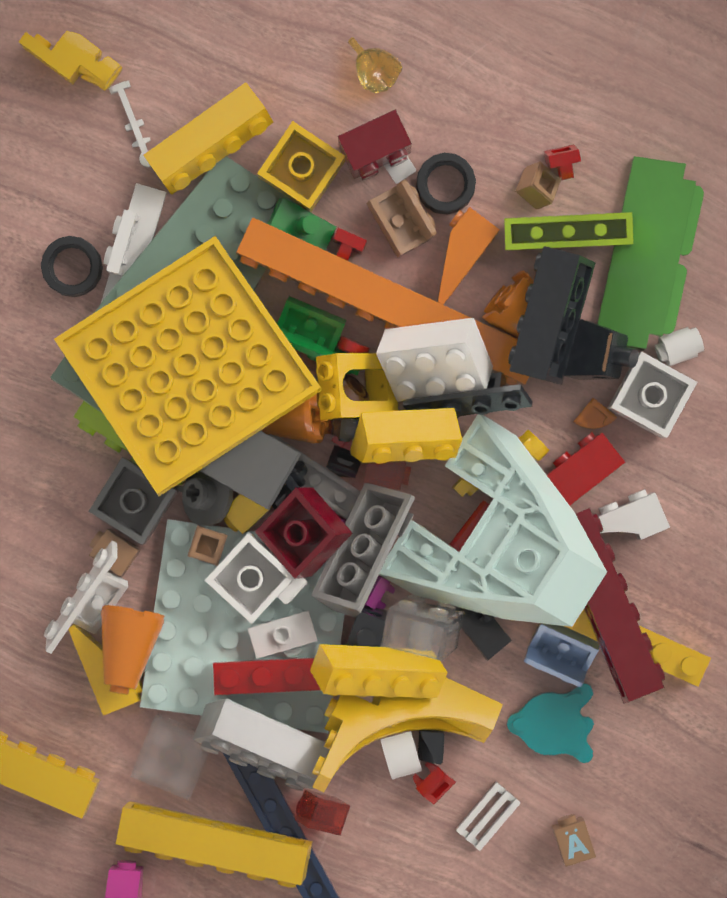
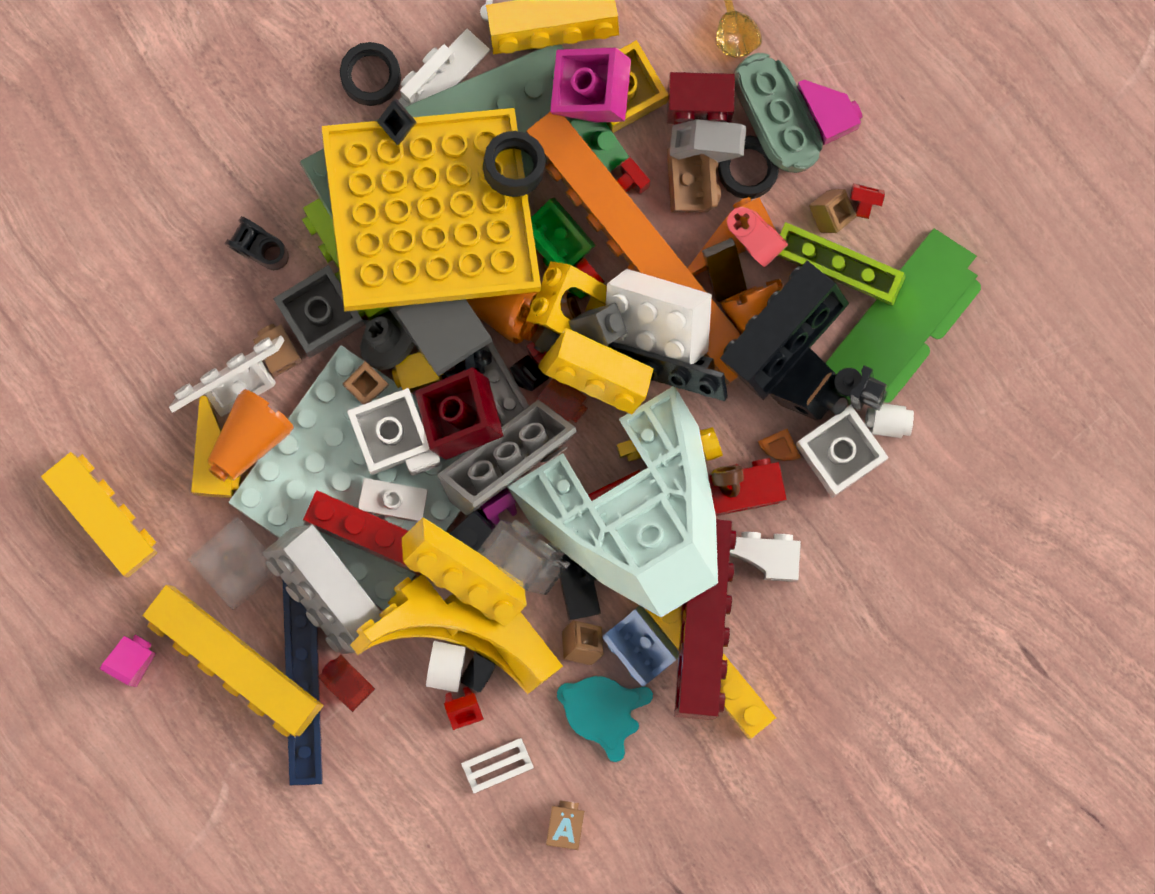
camera: 25 degrees right, 5 degrees down
(45, 467) = (253, 241): none -> black piece
(118, 302) = (396, 121): none -> black slope
(234, 265) = (519, 141): none -> black tyre
(273, 182) = (591, 84): none -> dark pink slope
(387, 392) = (600, 324): none -> dark grey brick
(400, 177) = (712, 138): none -> light grey slope
(448, 122) = (778, 113): none -> sand green tile
(470, 286) = (724, 269): none -> dark brown tile
(491, 244) = (759, 239): none -> coral piece
(492, 97) = (830, 110): none -> dark pink slope
(508, 673) = (582, 642): none -> medium nougat slope
(565, 469) = (726, 476): none -> reddish brown tile
(645, 333) = (860, 388): none -> black hips

